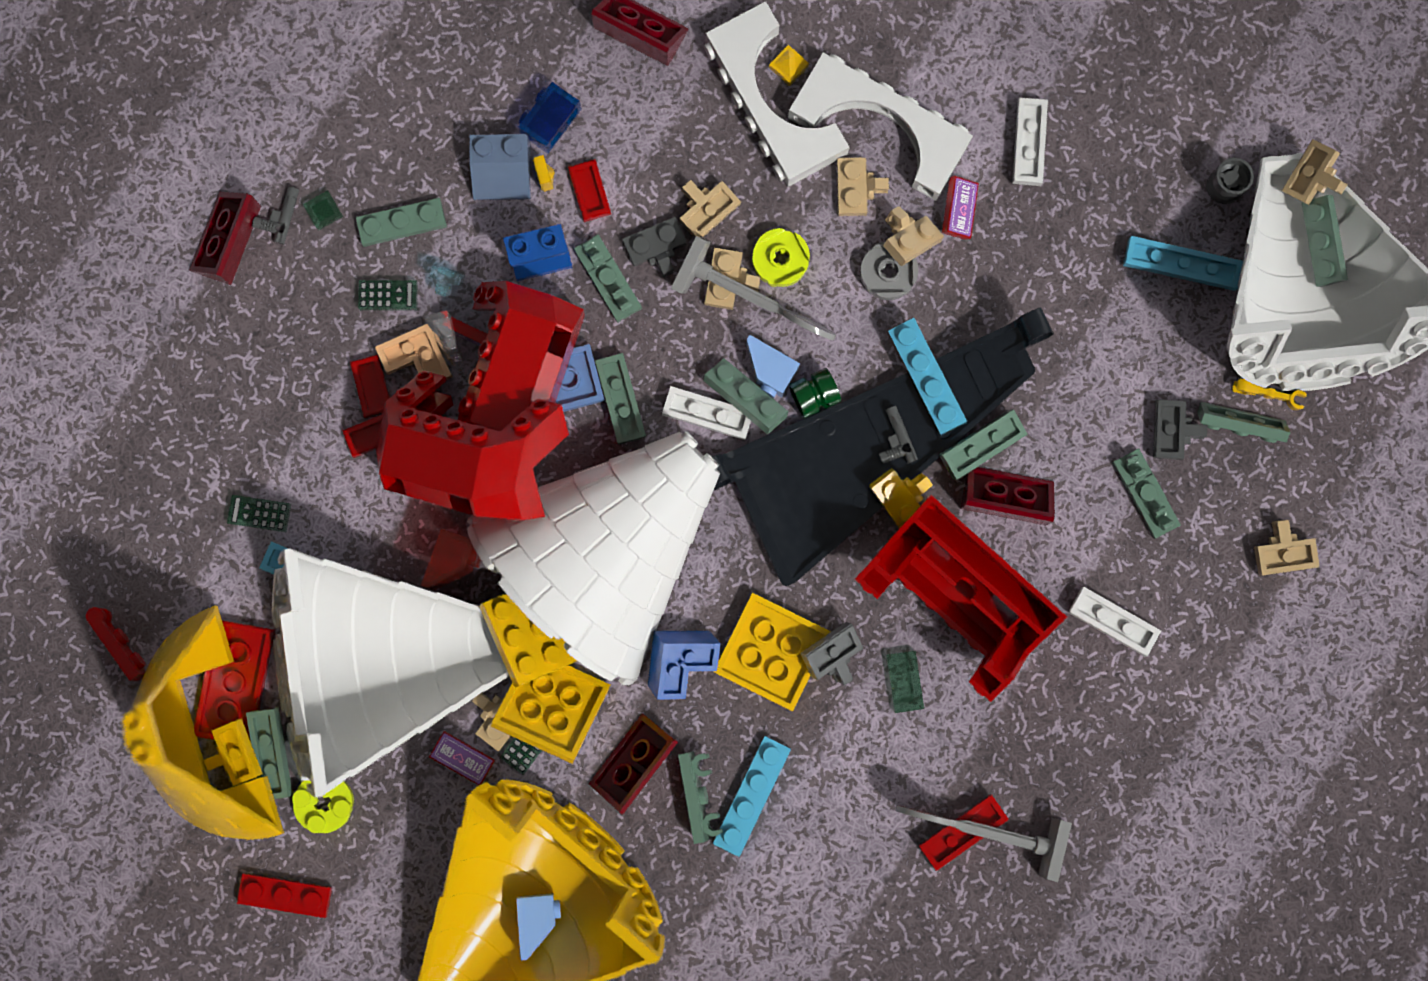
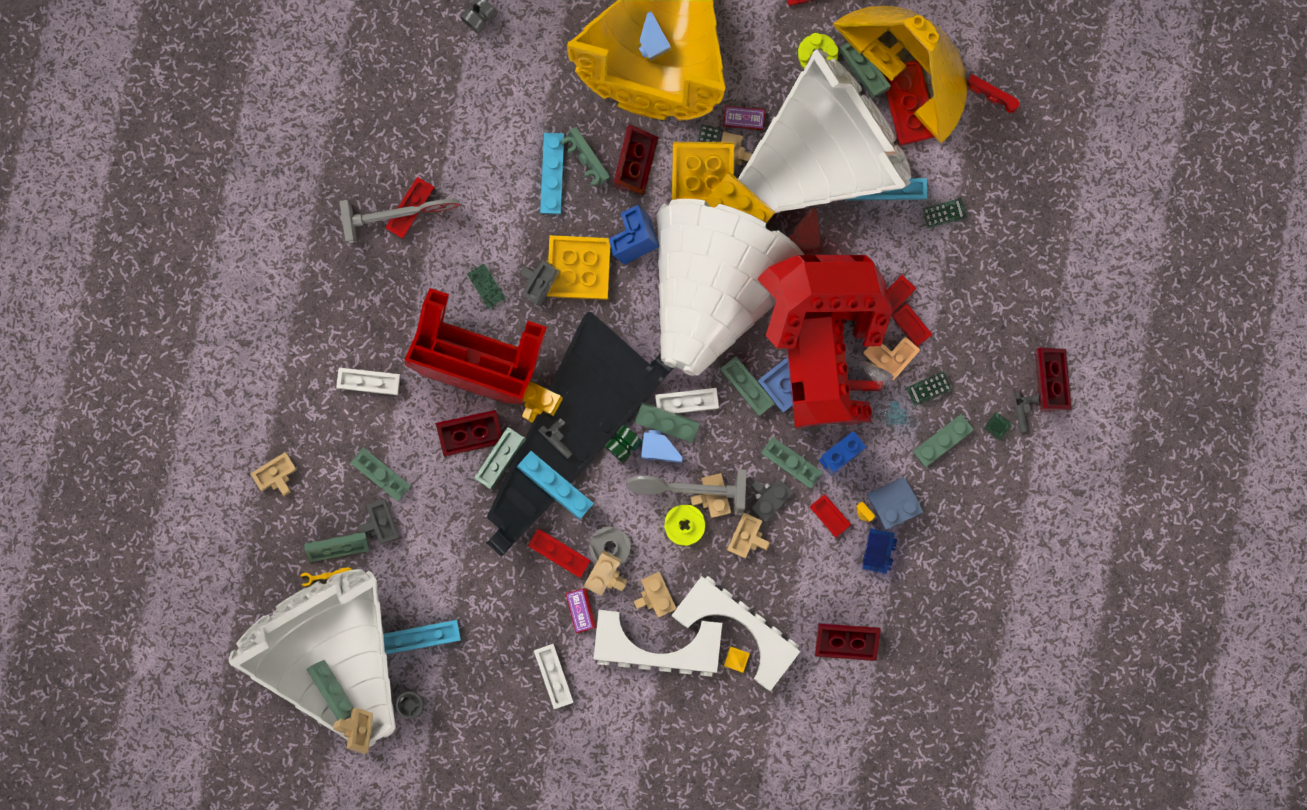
camera: 155 degrees right, 0 degrees up
(957, 291) = (559, 553): none -> red plate

